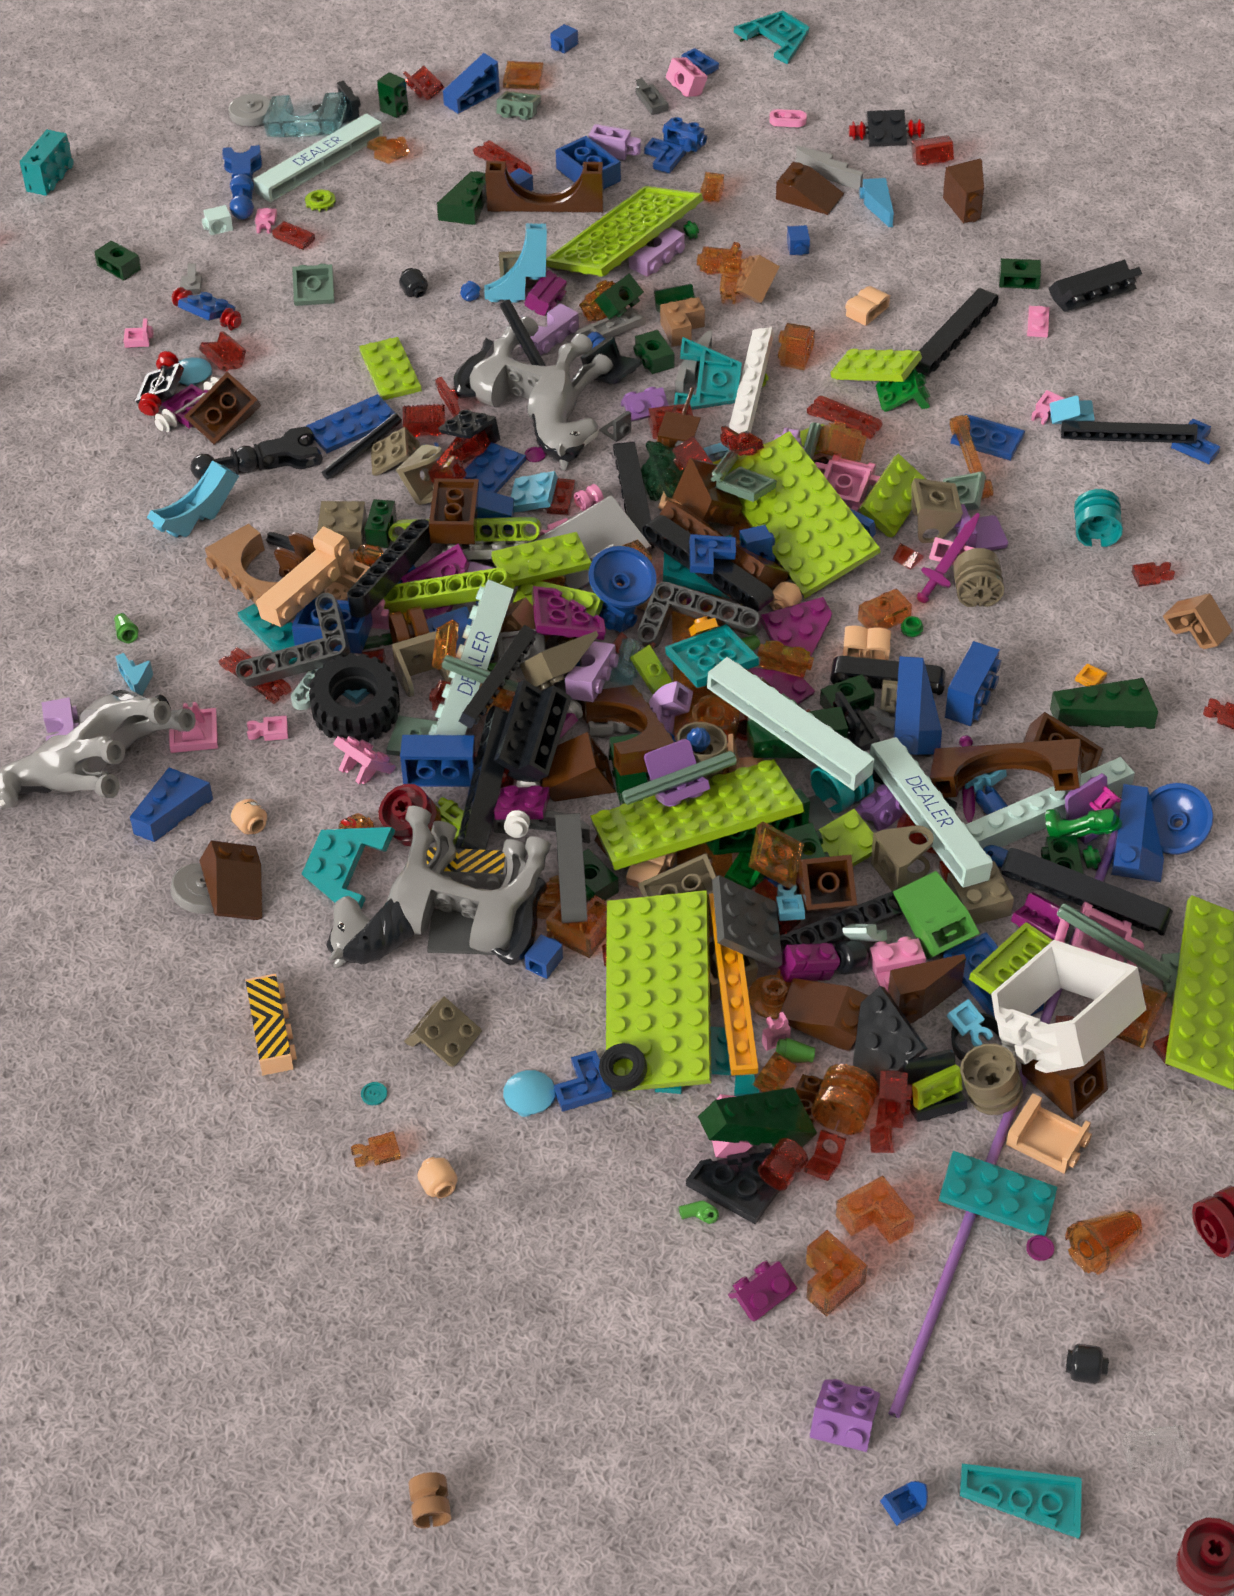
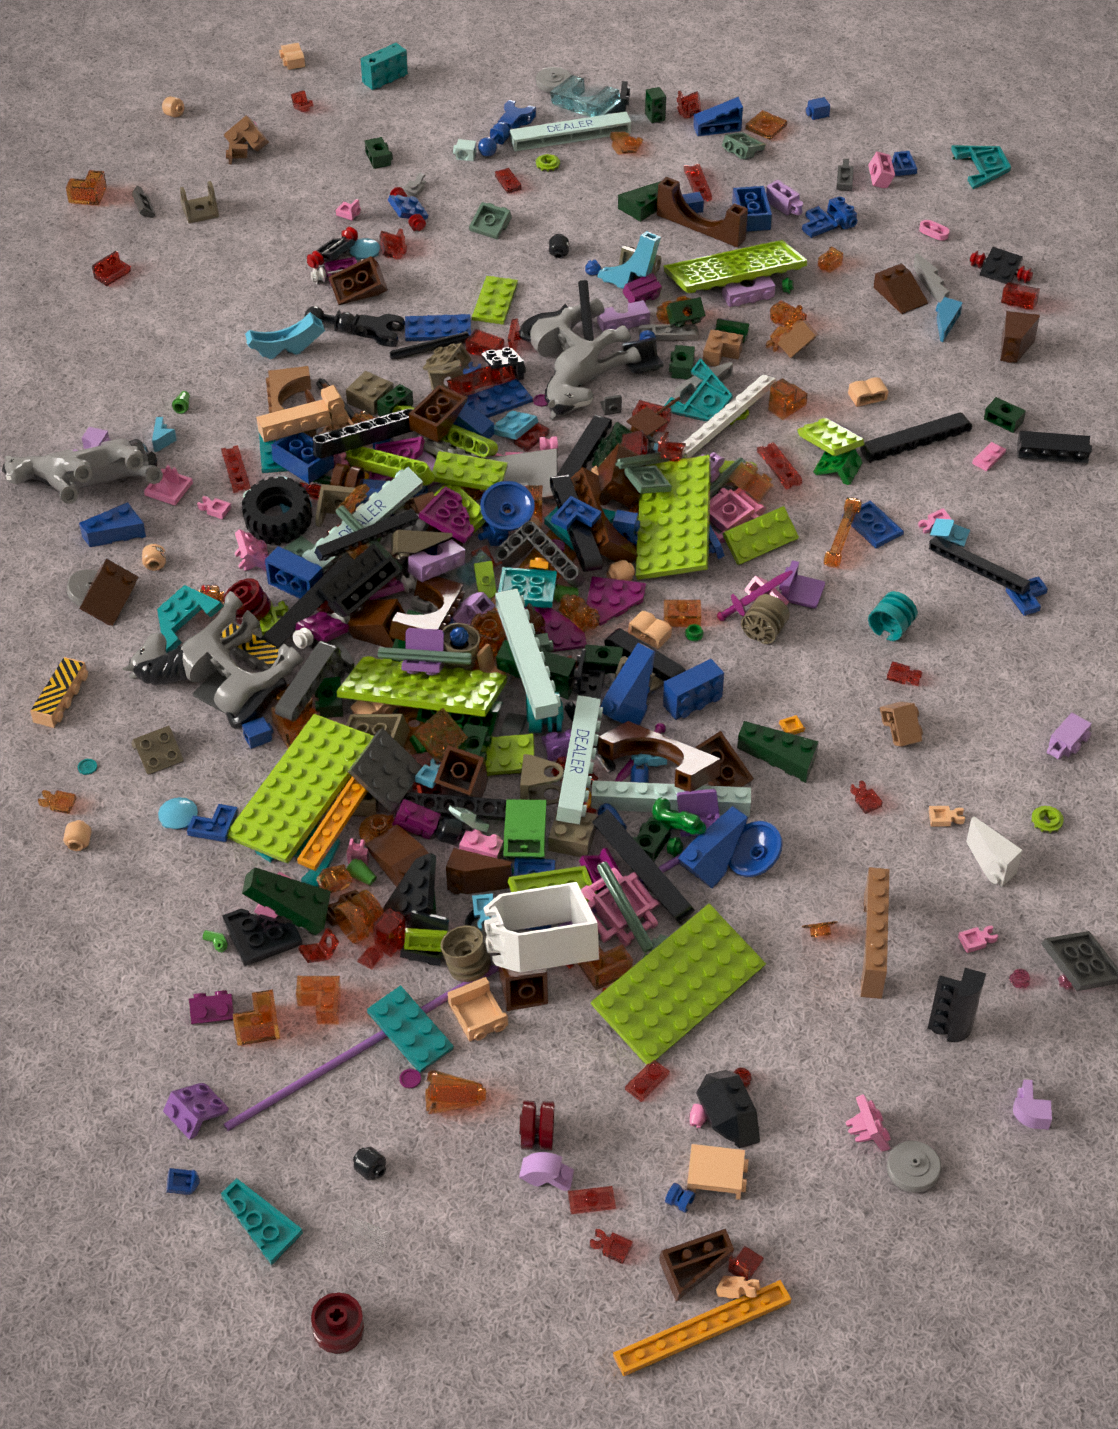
camera: 30 degrees right, 0 degrees up
(265, 218) = (500, 160): bright pink plate -> none
(303, 651) = (263, 468): dark grey beam -> none
(618, 1052) = (243, 833): black tyre -> none
(640, 402) = (640, 392): medium lavender bracket -> none
(780, 1167) = (283, 935): clear red wheel -> none
(798, 240) = (858, 323): blue brick -> none
(907, 556) = (735, 582): clear red slope -> none
(935, 506) = (771, 560): dark tan hose -> none
(969, 488) = (811, 554): sand green plate -> none
(1101, 803) = (709, 811): dark pink bush -> none

